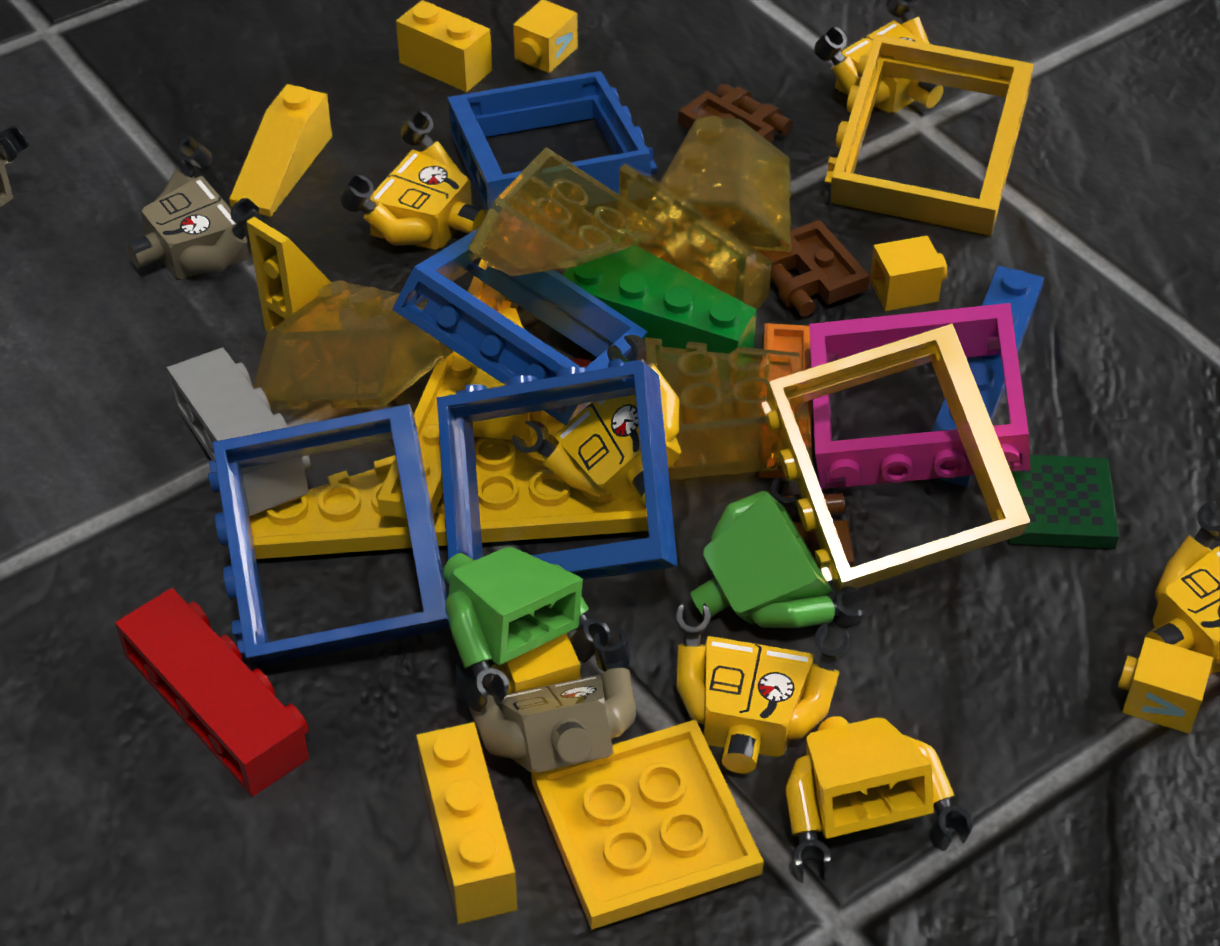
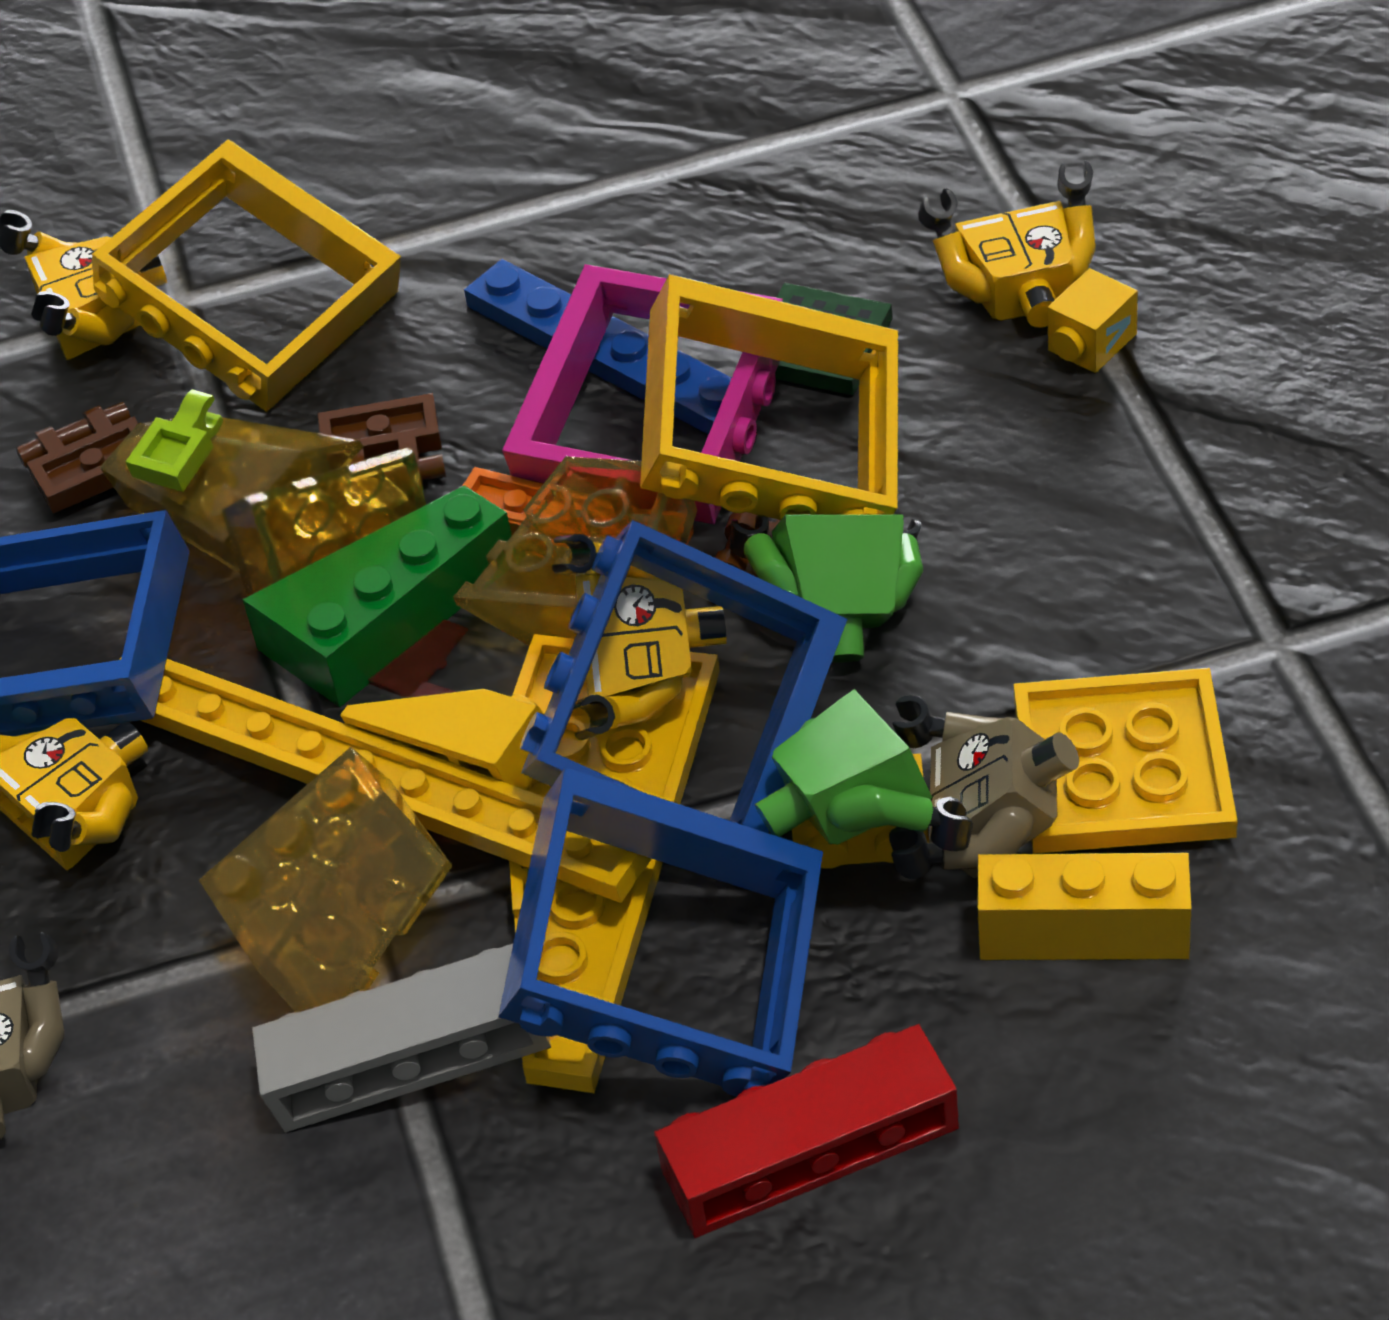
camera: 65 degrees left, 0 degrees up
(282, 273) = (191, 932): yellow slope -> none
(494, 340) = (384, 673): blue window -> none
(558, 220) = (290, 595): clear yellow wedge -> none
(705, 133) = (176, 448): none -> lime plate
(753, 693) = (994, 627): yellow torso -> none
(866, 779) = (1141, 570): yellow torso -> none
(907, 273) = (441, 361): yellow brick -> none

